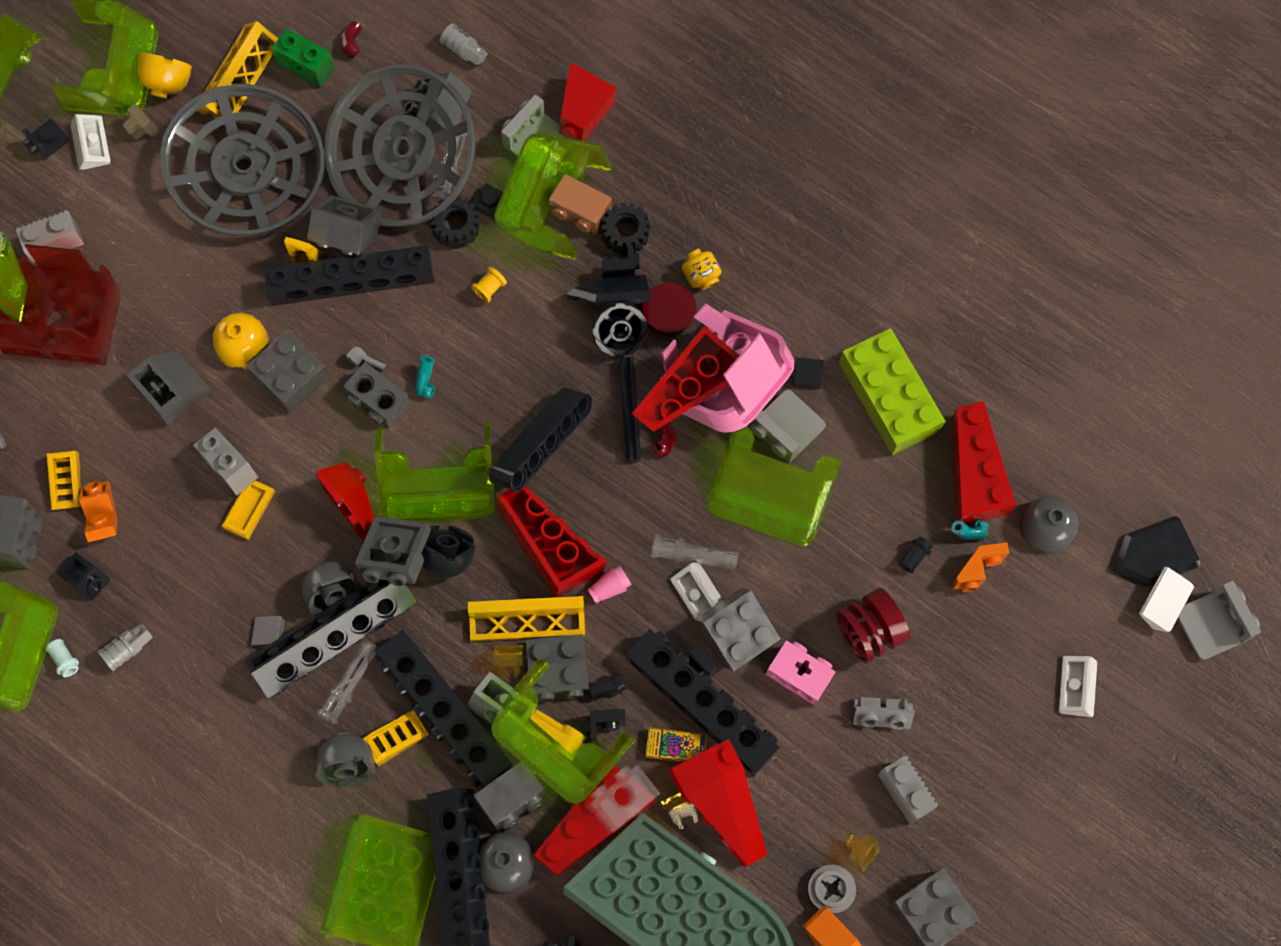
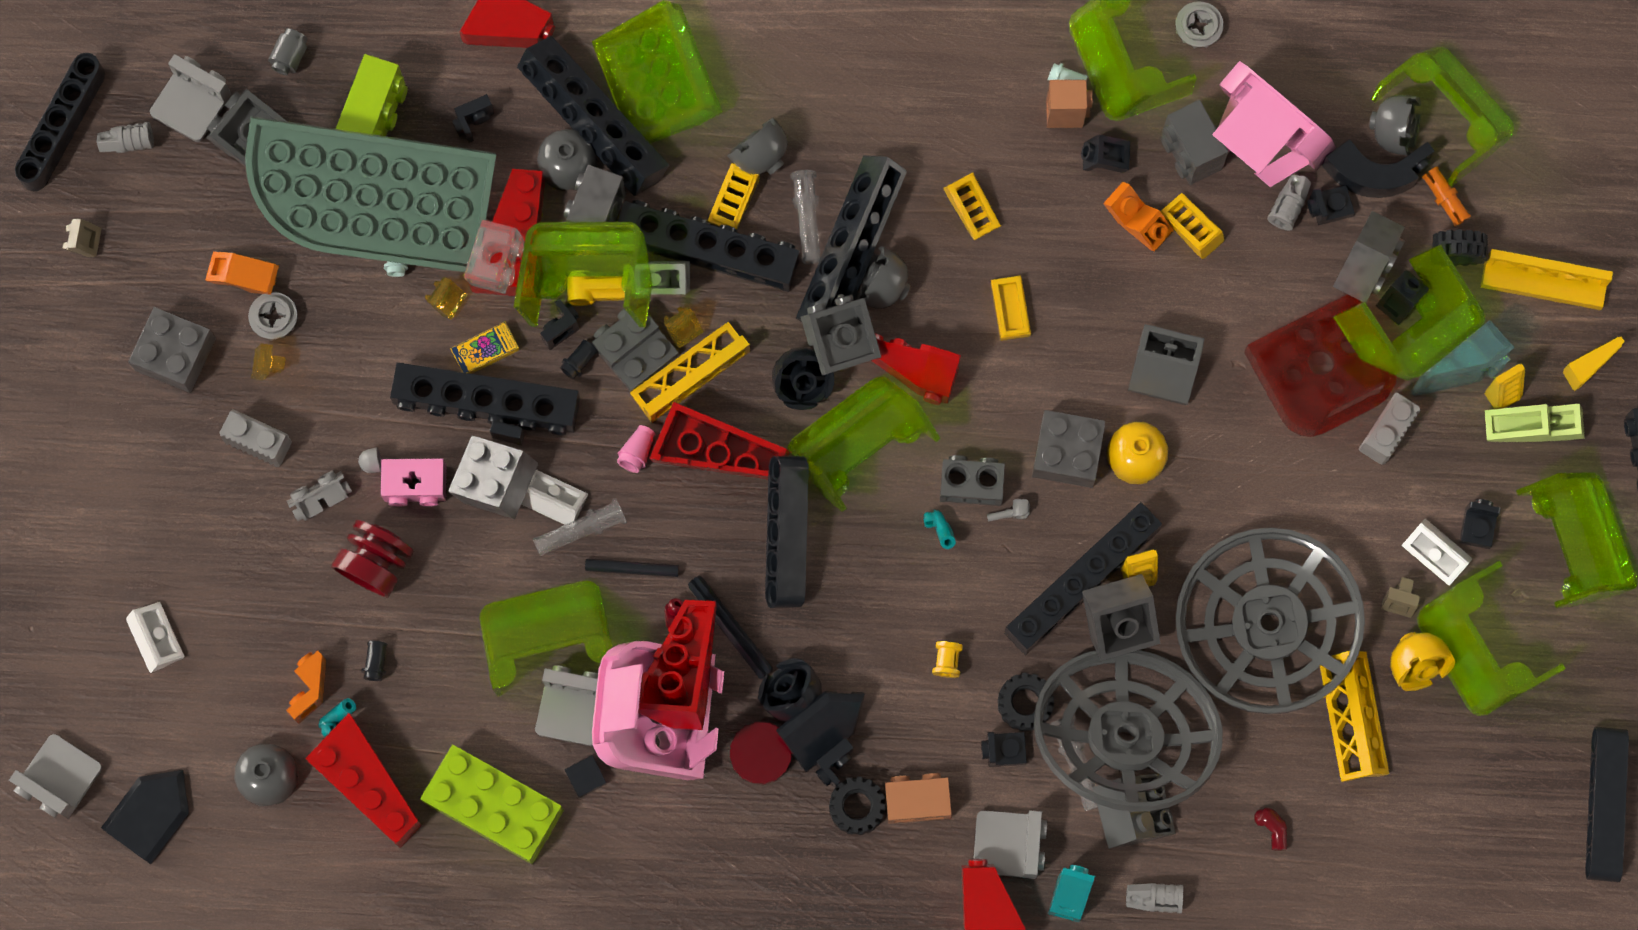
camera: 150 degrees right, 5 degrees up
(79, 628) = (1067, 103): none -> nougat brick
(125, 646) = (1022, 120): light grey hinge -> none
(210, 624) = (971, 181): none -> yellow slope
(225, 461) = (1058, 328): light grey brick -> none
(267, 630) = (910, 214): light grey slope -> none
(303, 57) = (1300, 771): green brick -> none
(519, 74) = (1071, 893): none -> teal slope
(532, 182) = (972, 776): clear neon green windscreen -> none
(674, 500) = (631, 567): none -> black bar
(701, 269) = (754, 810): yellow head -> none
(720, 791) = (415, 323): red wedge -> none
(825, 712) = (370, 460): none -> light grey hinge
(1166, 600) = (115, 767): white slope -> none

